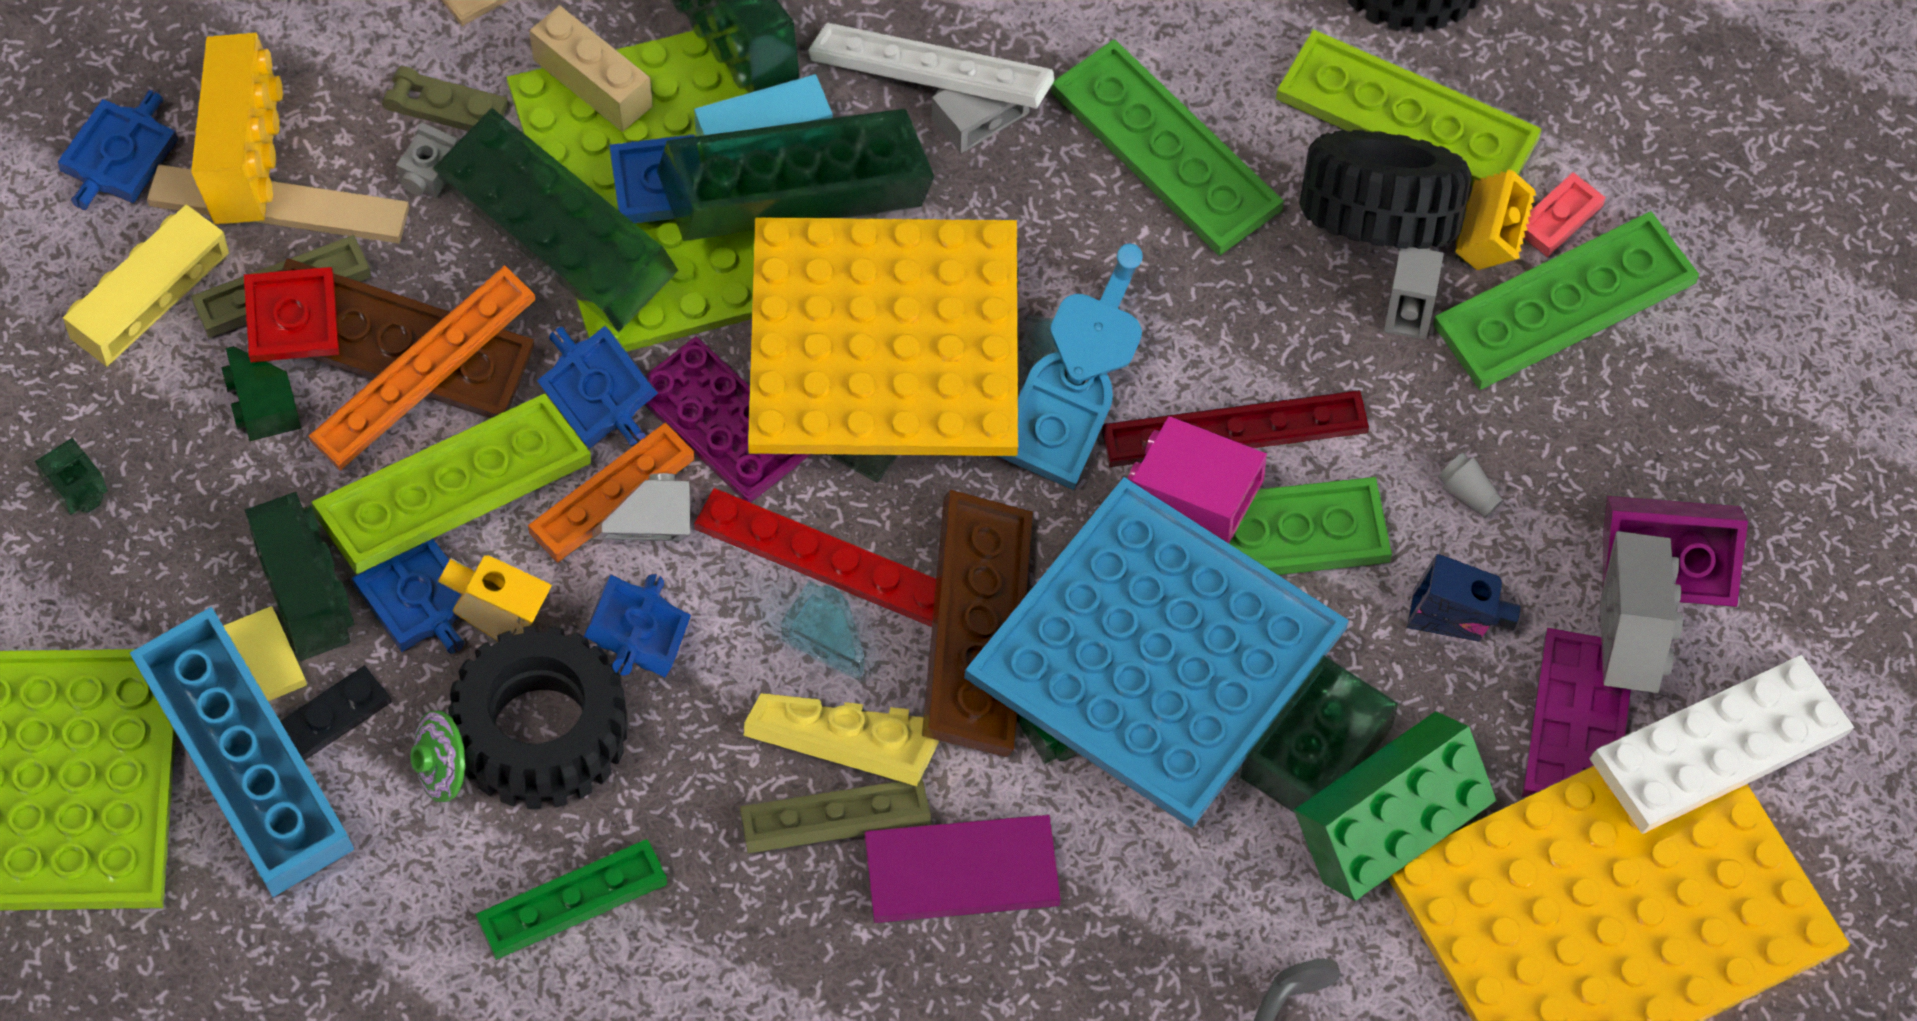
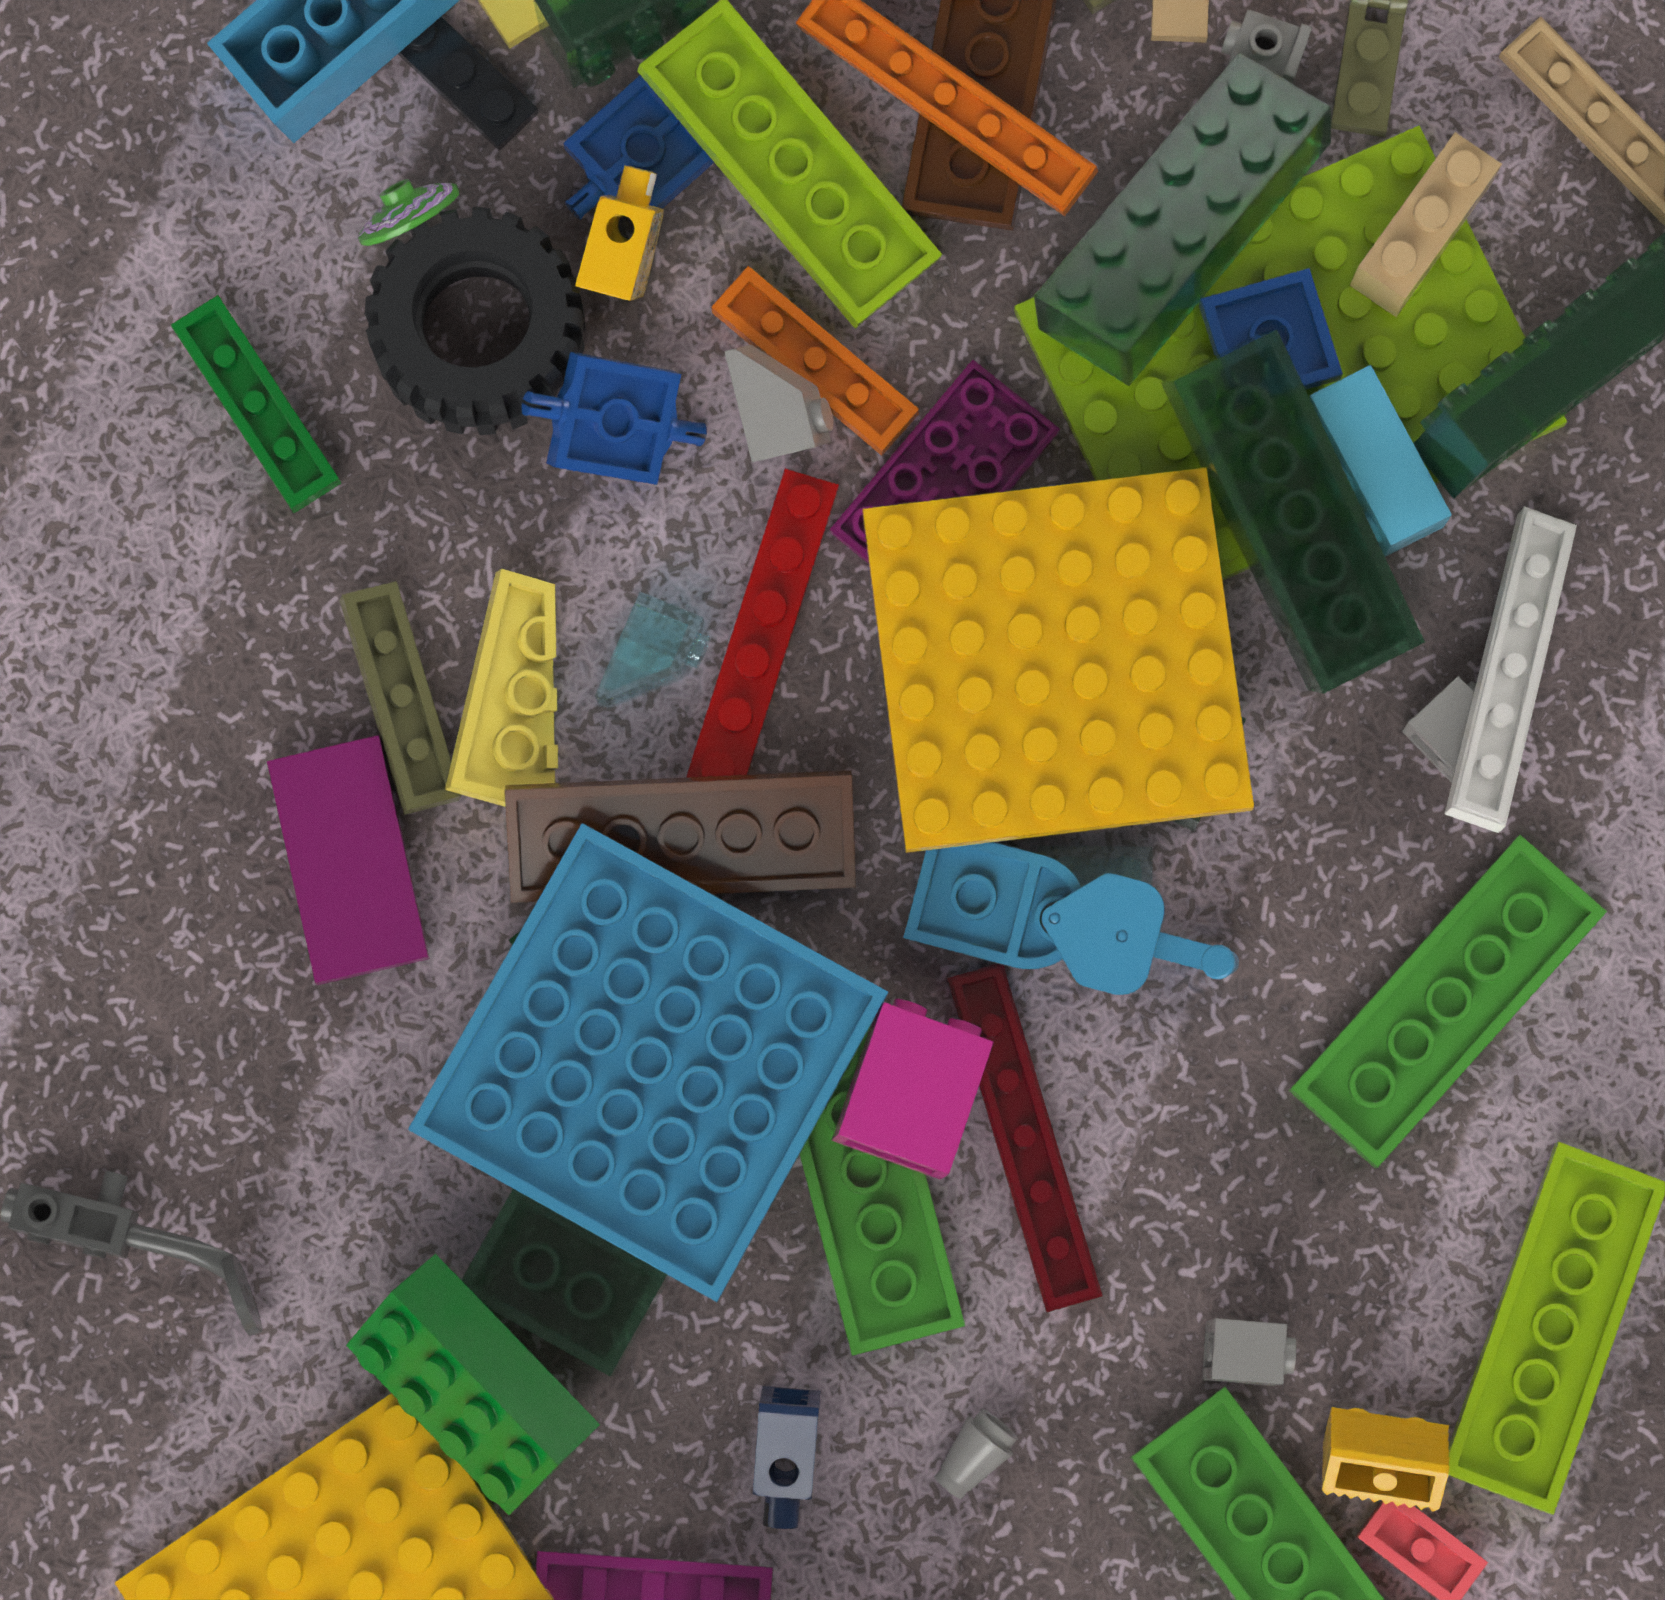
camera: 85 degrees right, 20 degrees up
(597, 386) = (958, 316): blue plate -> none
(1385, 189) = (1332, 1297): black tyre -> none

